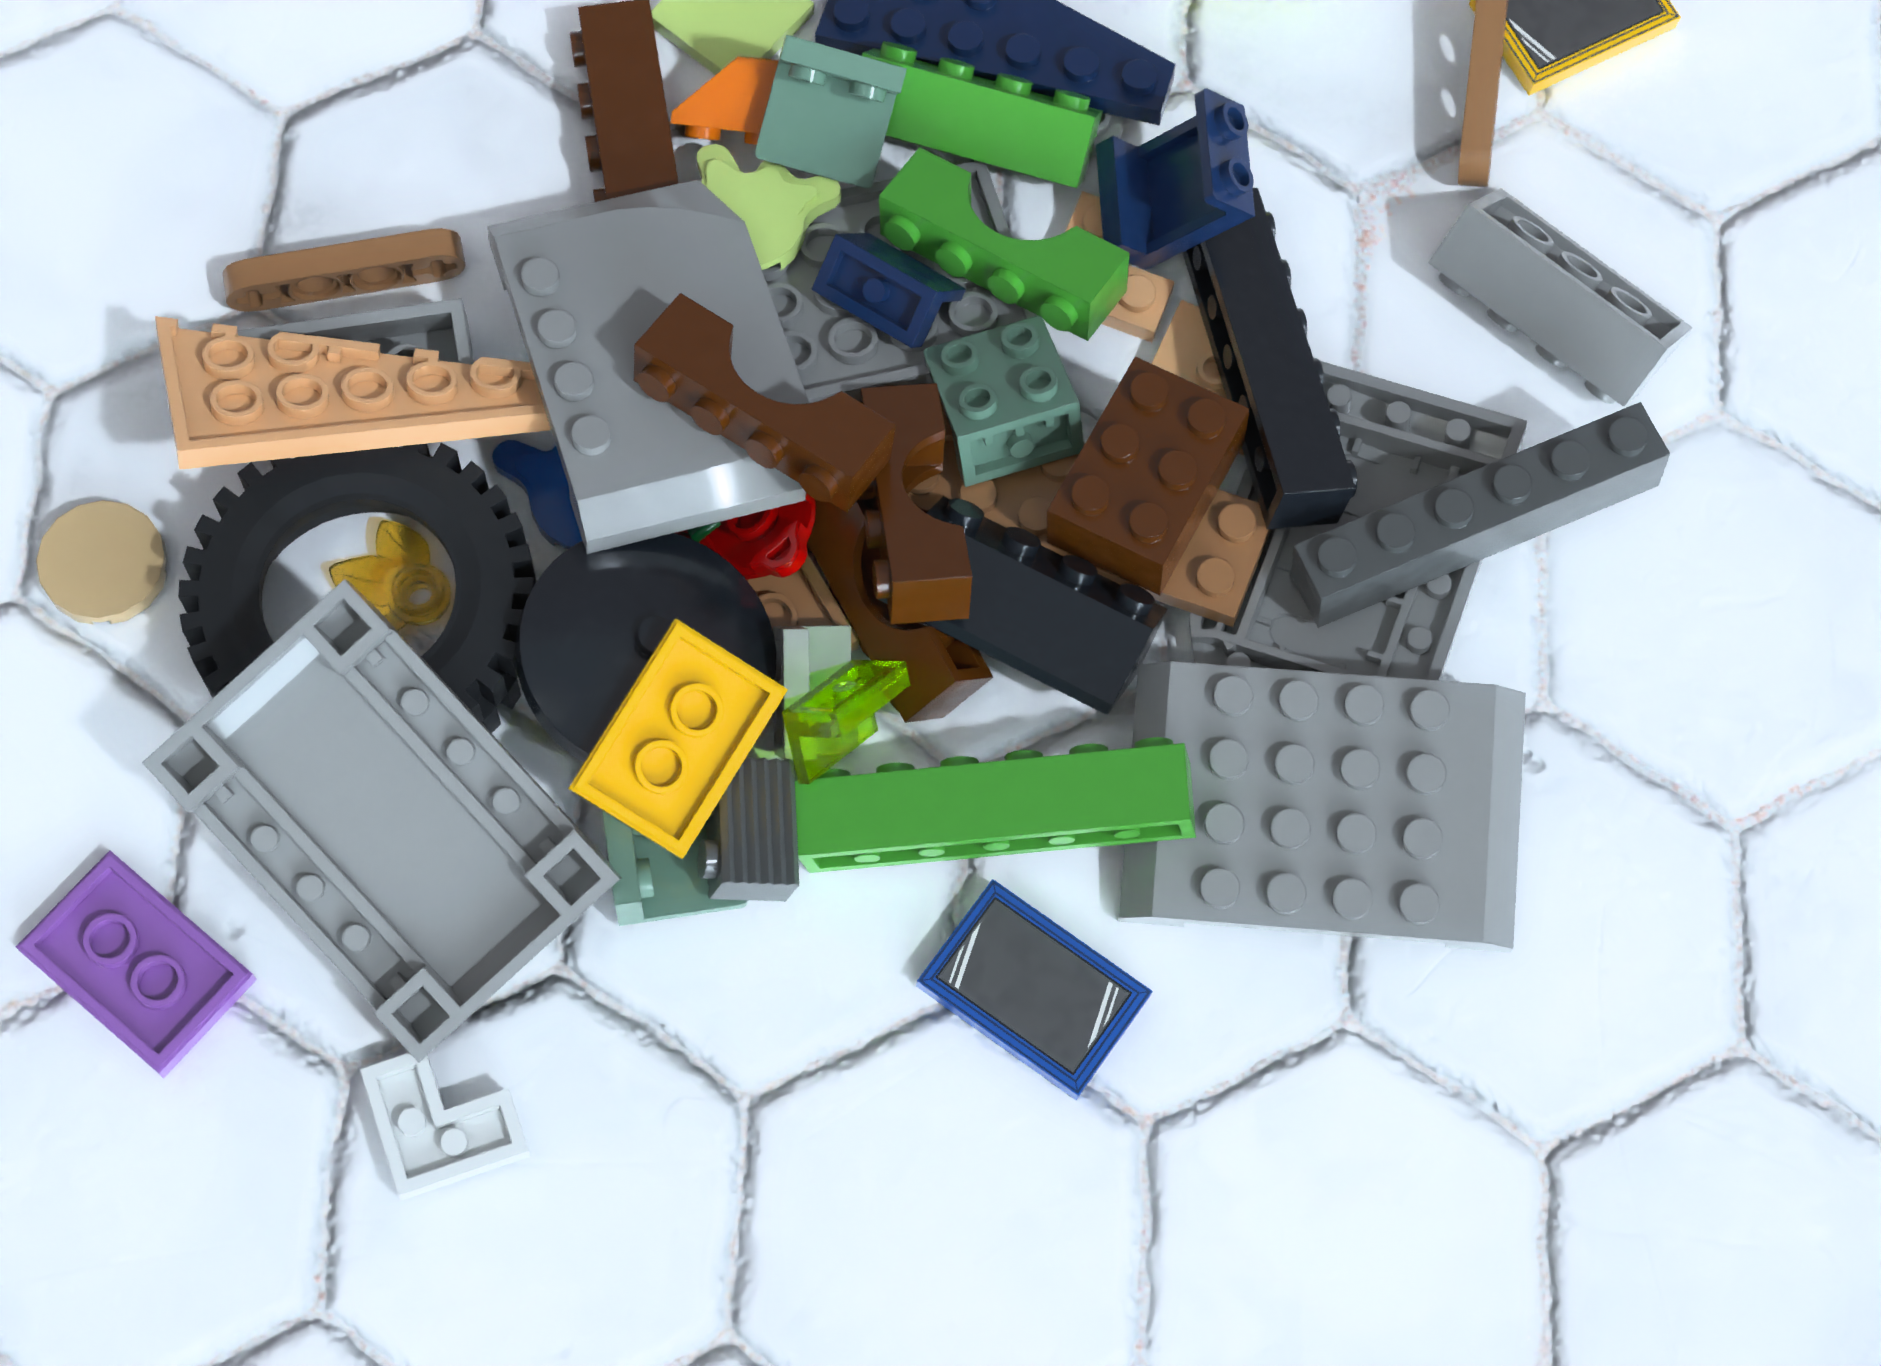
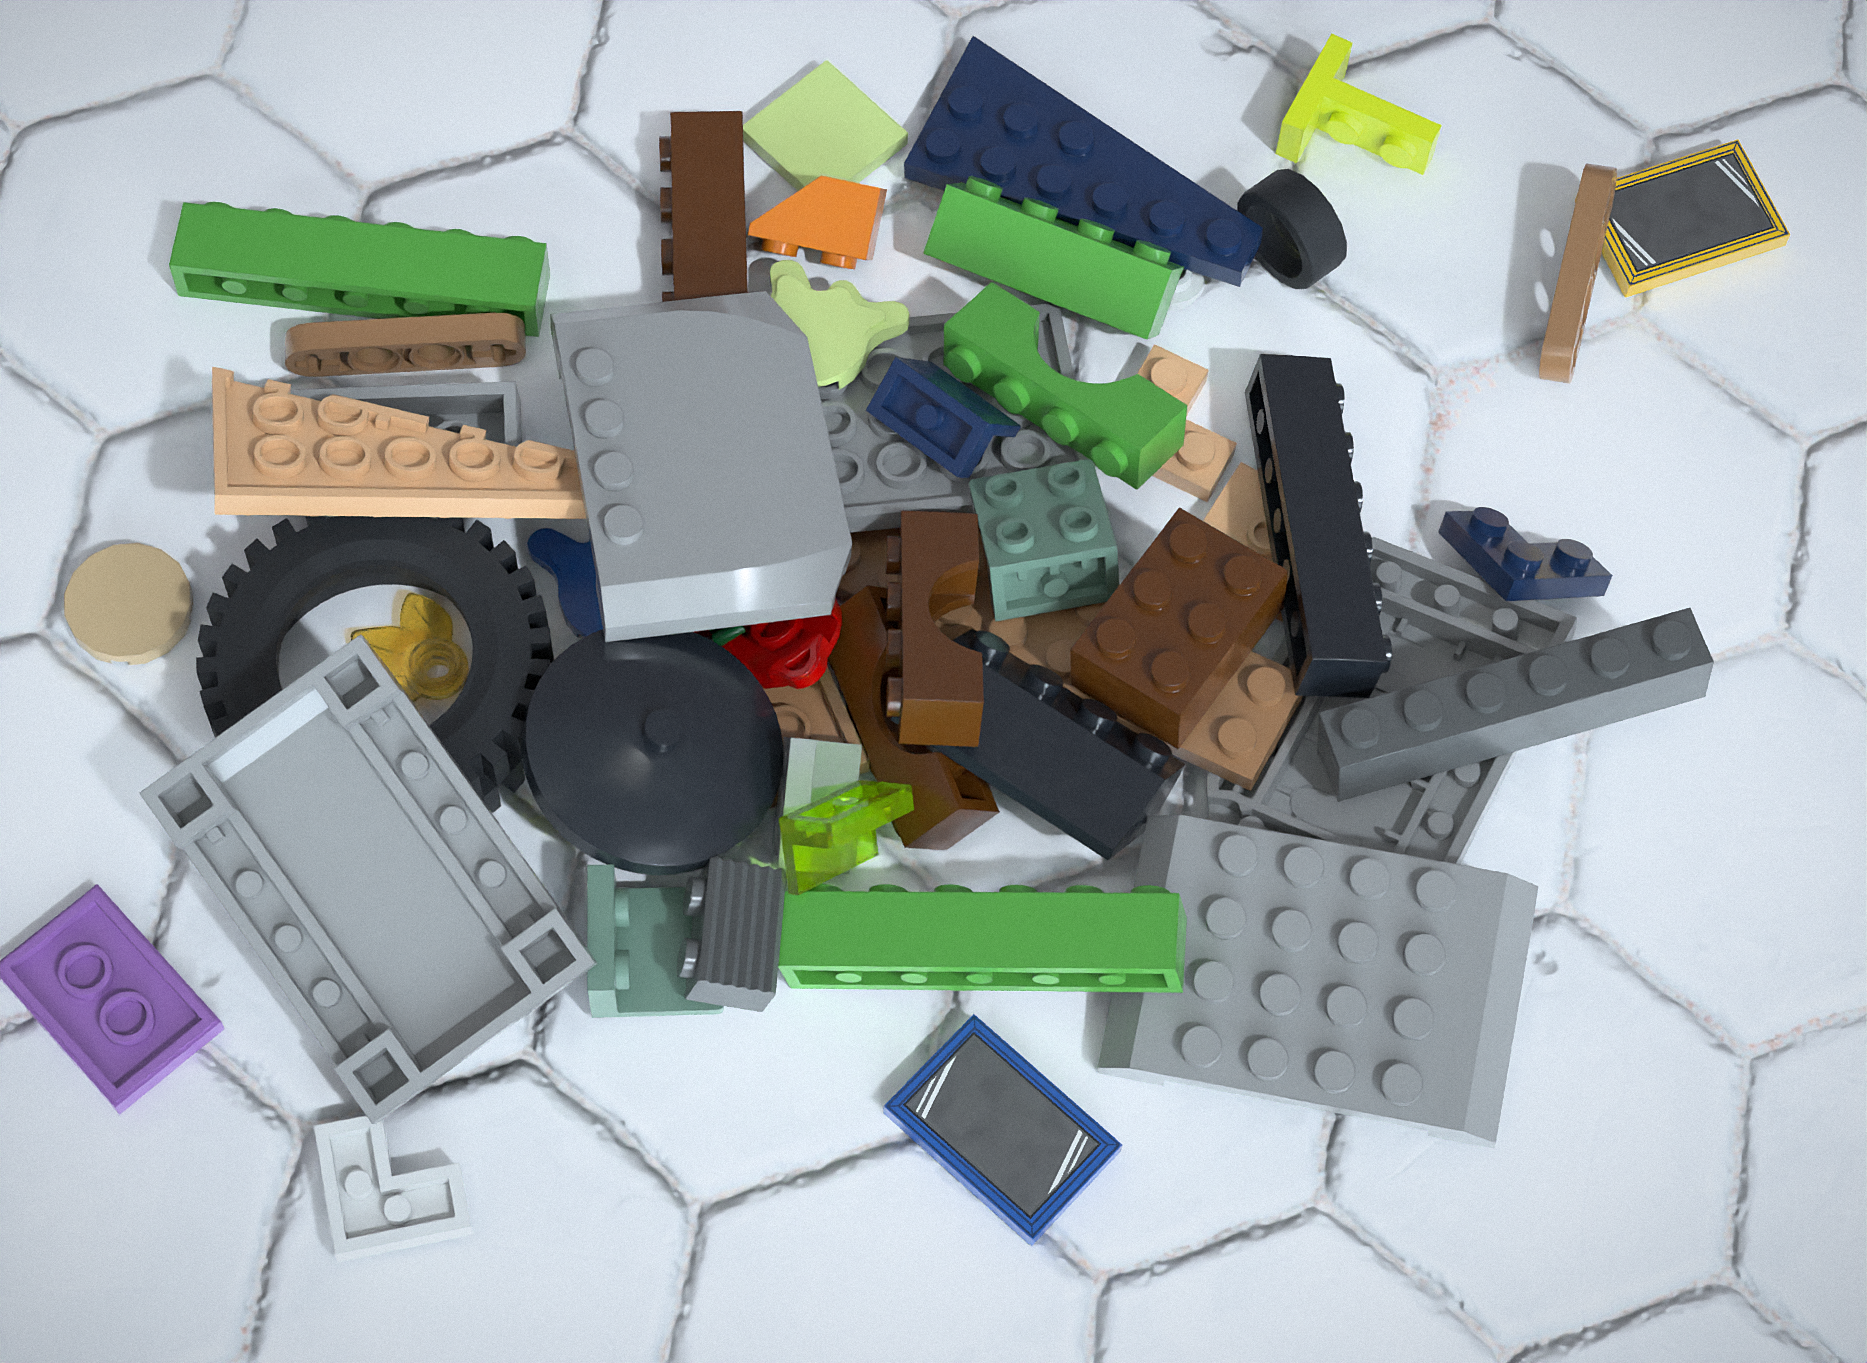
camera: 10 degrees right, 5 degrees down
(282, 195) = (355, 266): none -> bright green brick
(678, 738) = (671, 832): yellow tile -> none
(824, 445) = (853, 558): reddish brown arch -> none
(828, 112) = (905, 238): sand green bracket -> none
(1178, 184) = (1246, 347): dark blue panel -> none
(1206, 55) = (1299, 231): none -> black tyre
(1466, 377) = (1522, 568): none -> dark blue plate
(1558, 296) = (1628, 499): light grey slope -> none

